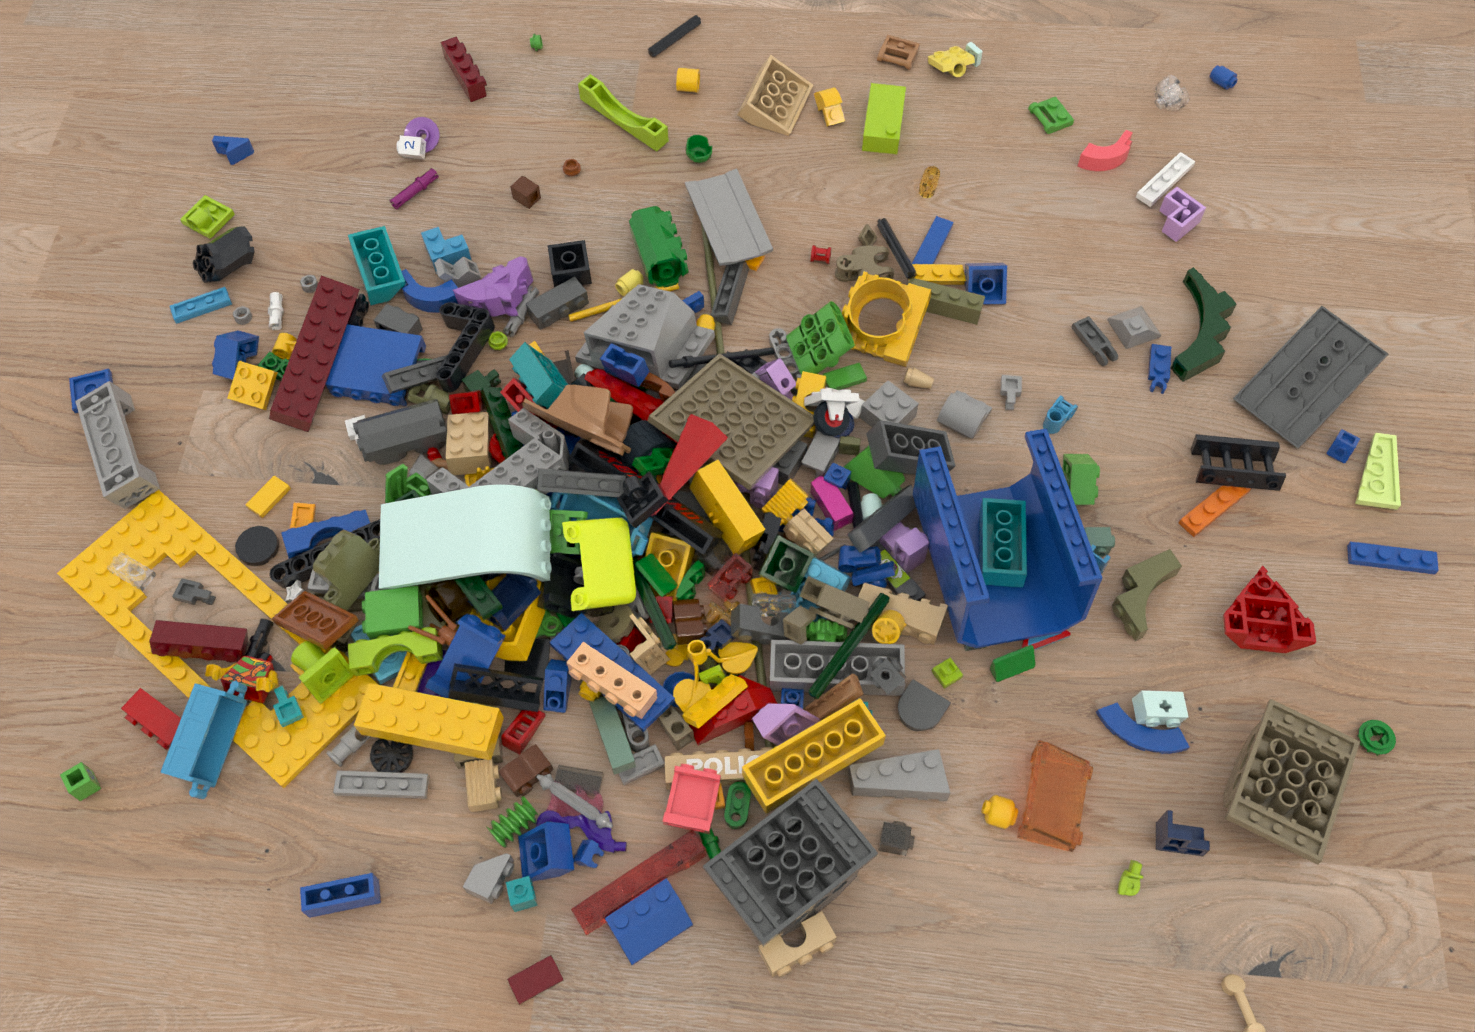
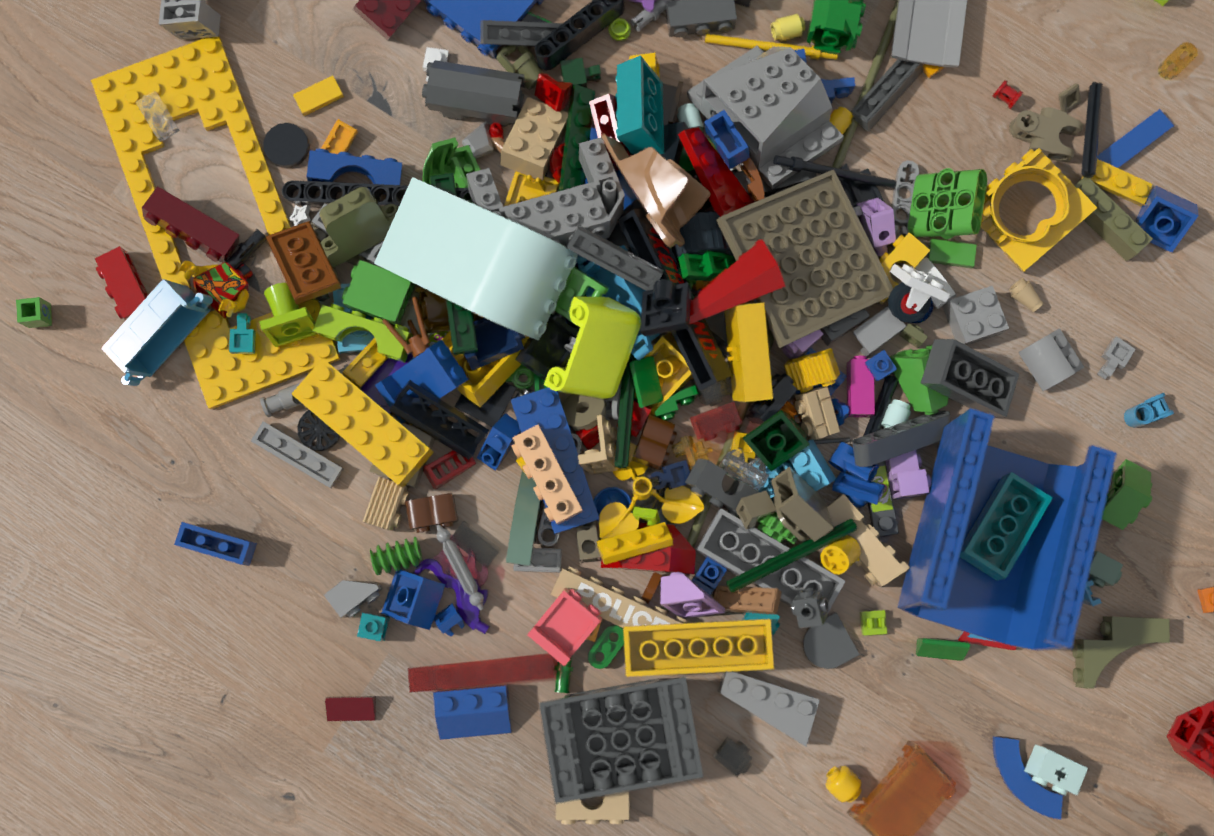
camera: 25 degrees right, 20 degrees up
(191, 591) = (206, 165): dark grey plate -> none

